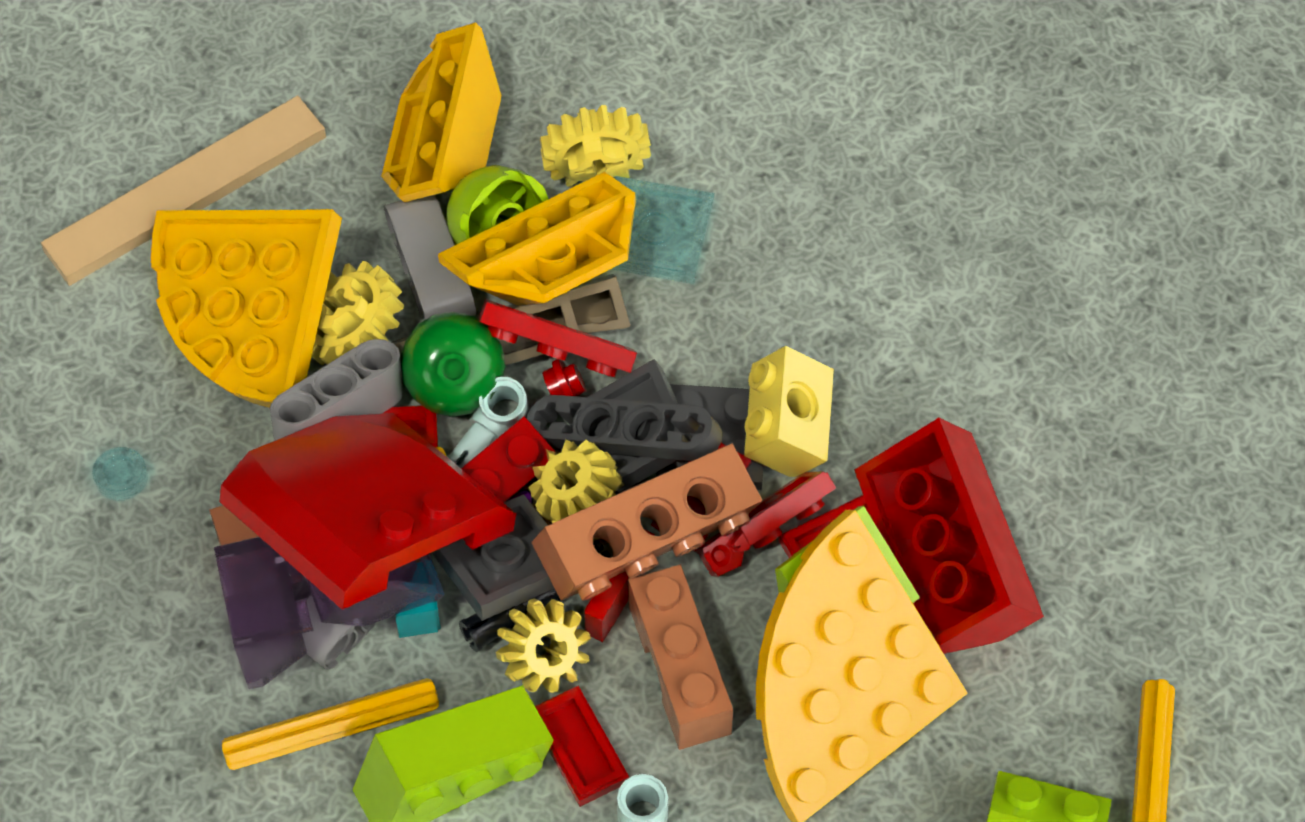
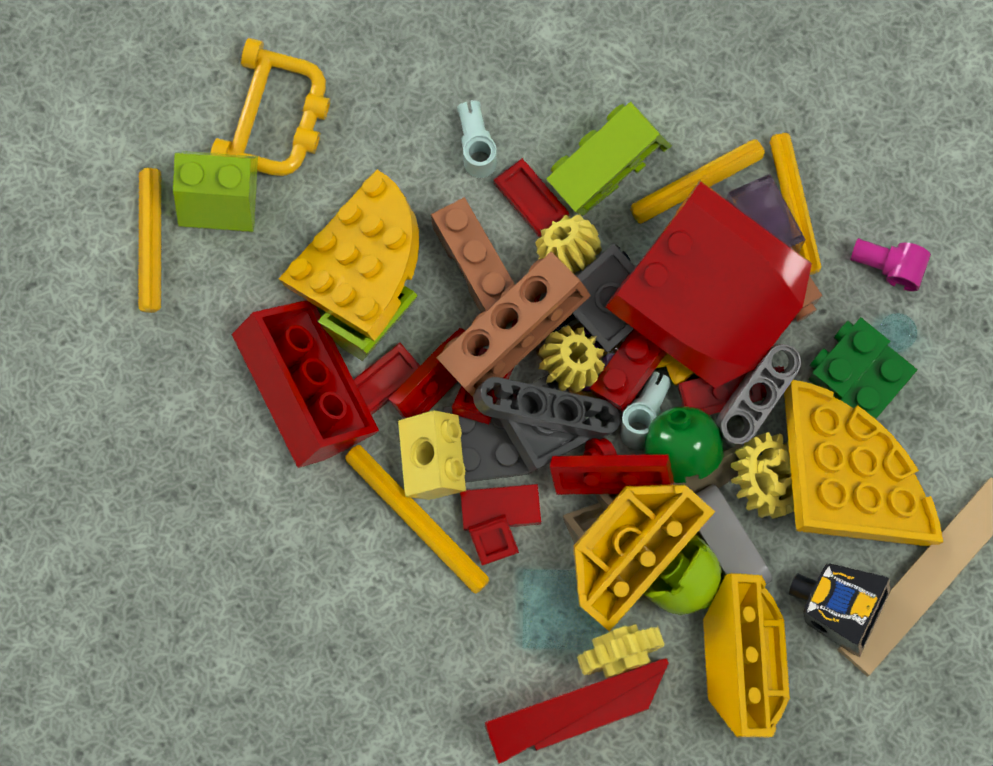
camera: 170 degrees right, 15 degrees up
(84, 551) = (900, 264): none -> dark pink pin
(187, 431) = (862, 368): none -> green plate
(200, 669) = (793, 194): none -> yellow axle
(305, 160) = (842, 604): none -> torso
(699, 112) = (575, 712): none -> red wedge
(708, 353) = (517, 502): none -> red tile
(726, 313) = (493, 539): none -> red tile
(808, 340) = (417, 519): none -> yellow axle

